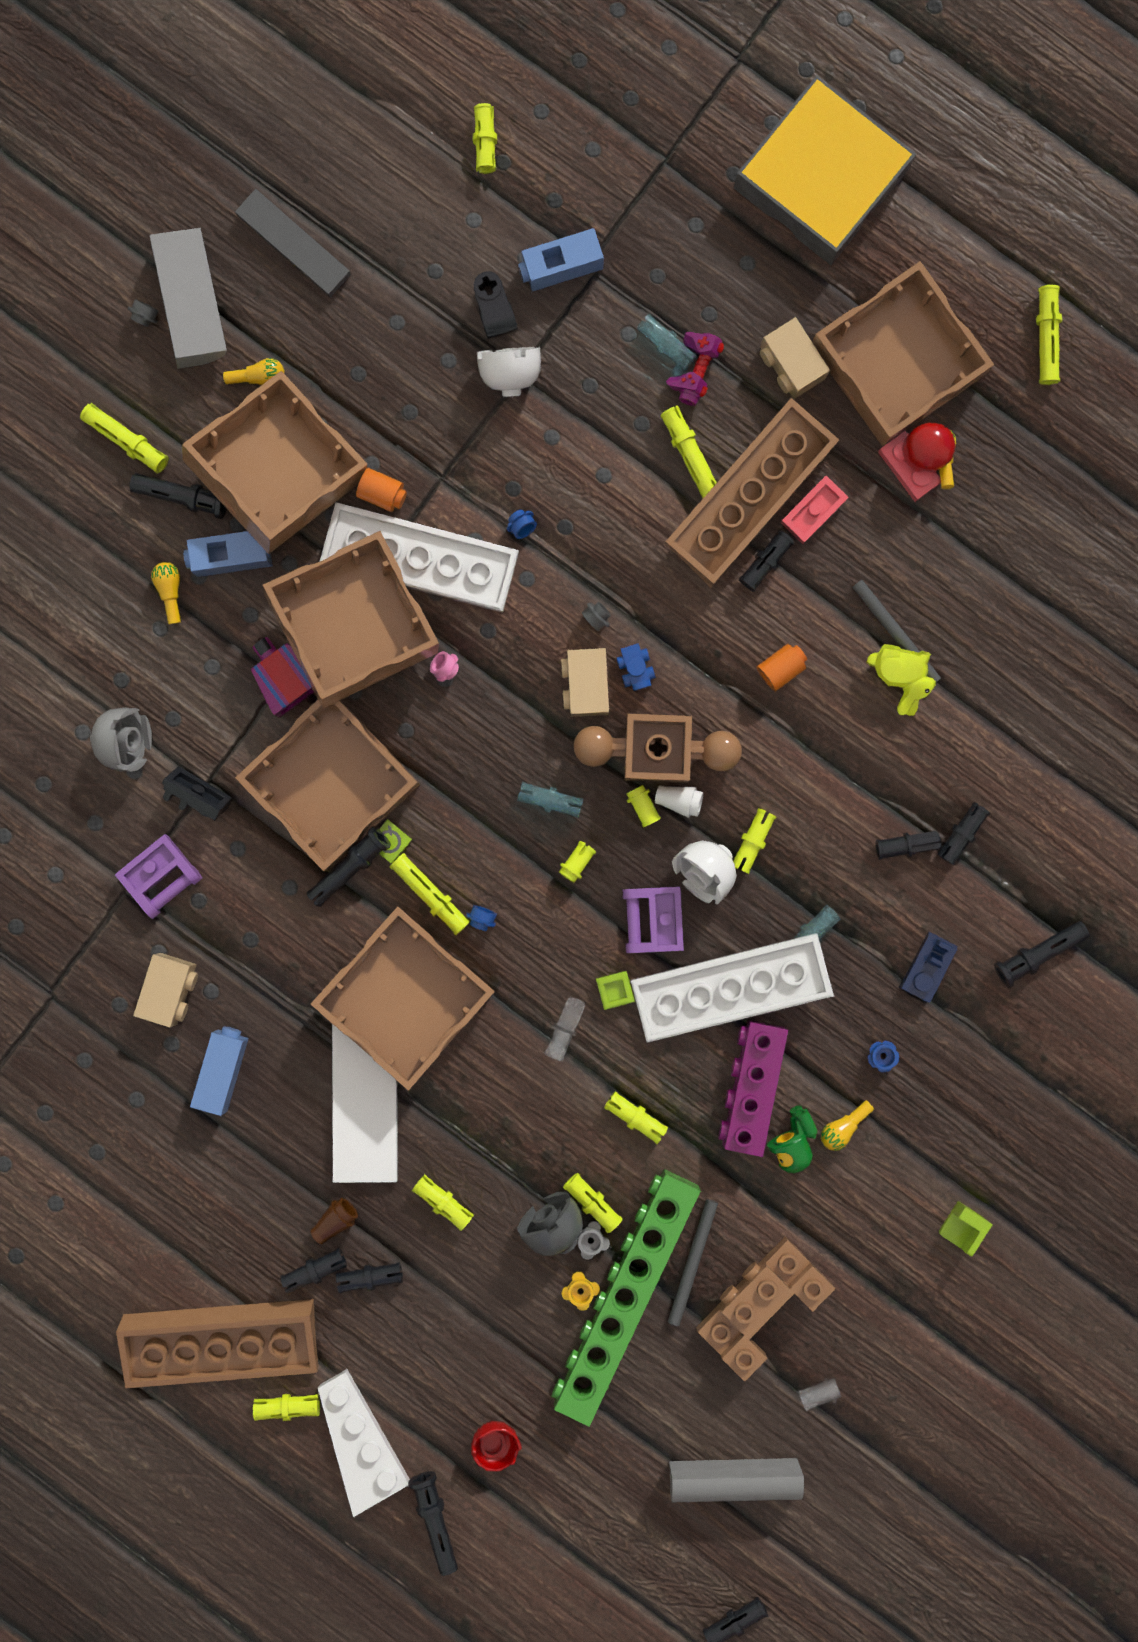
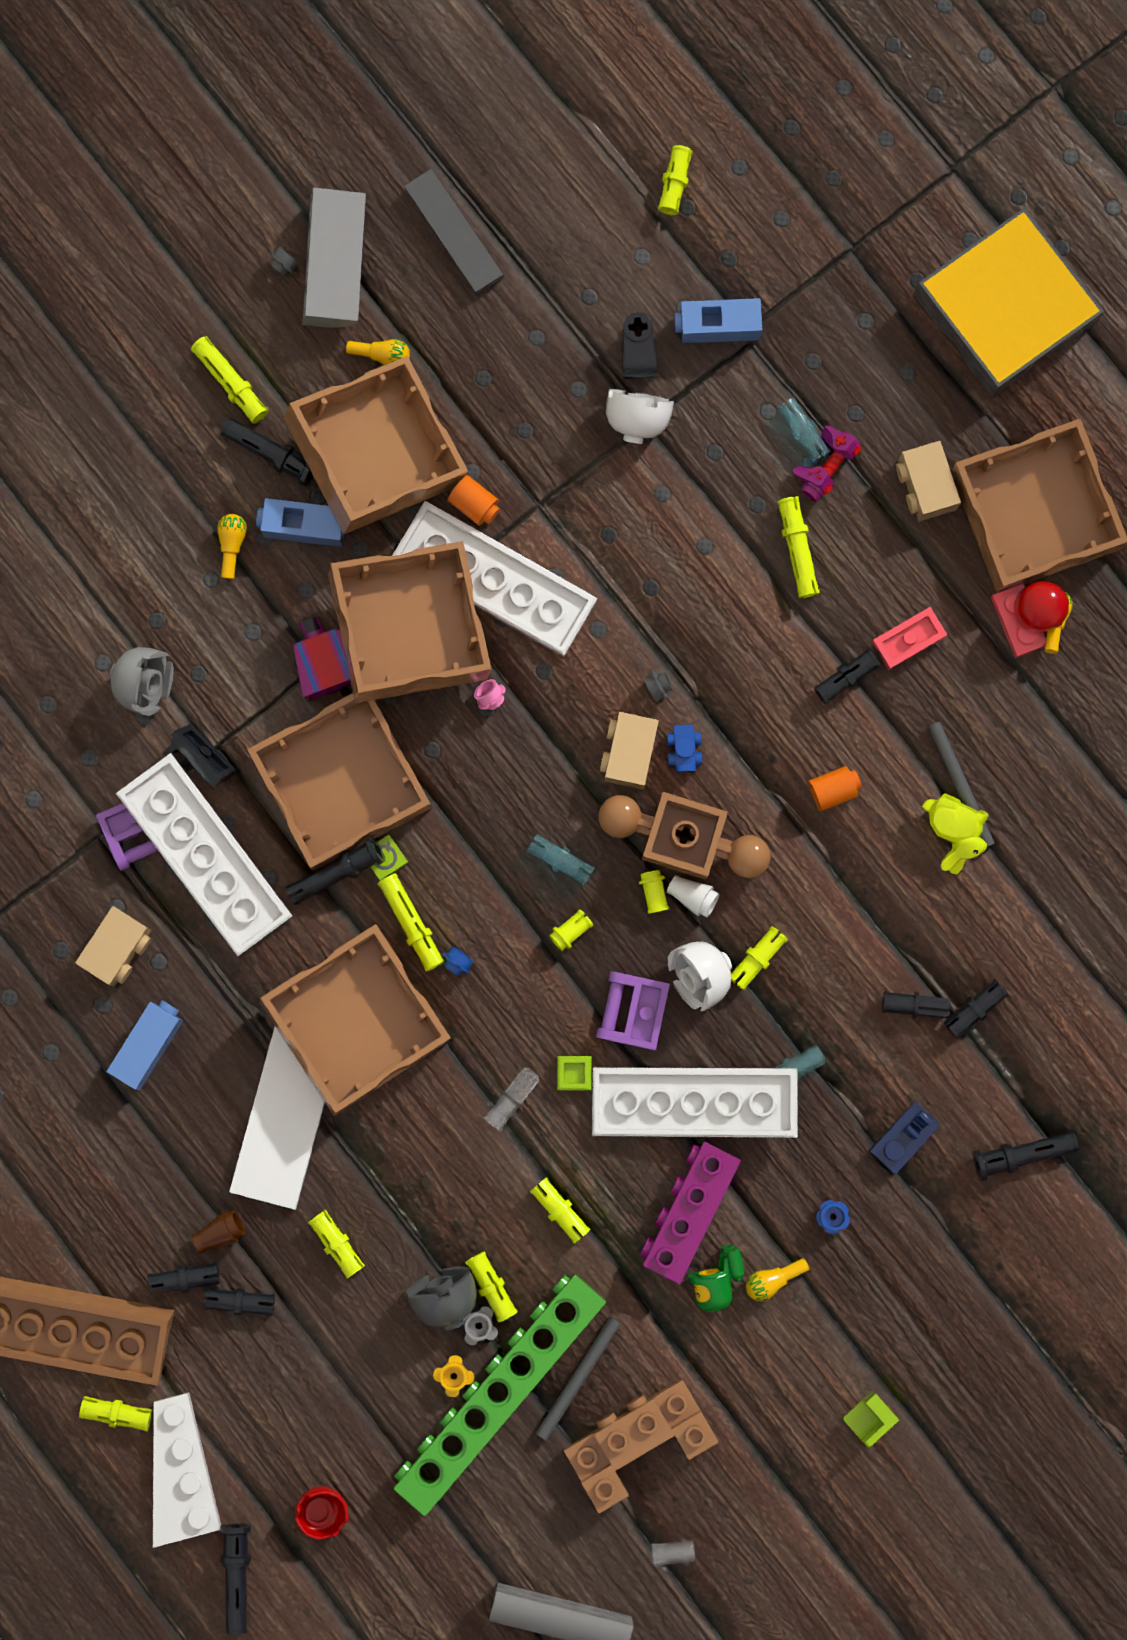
camera: 10 degrees right, 5 degrees down
(223, 883) = (204, 854): none -> white tile
(521, 524) = (607, 572): blue plate -> none
(751, 492) = (849, 604): medium nougat arch -> none

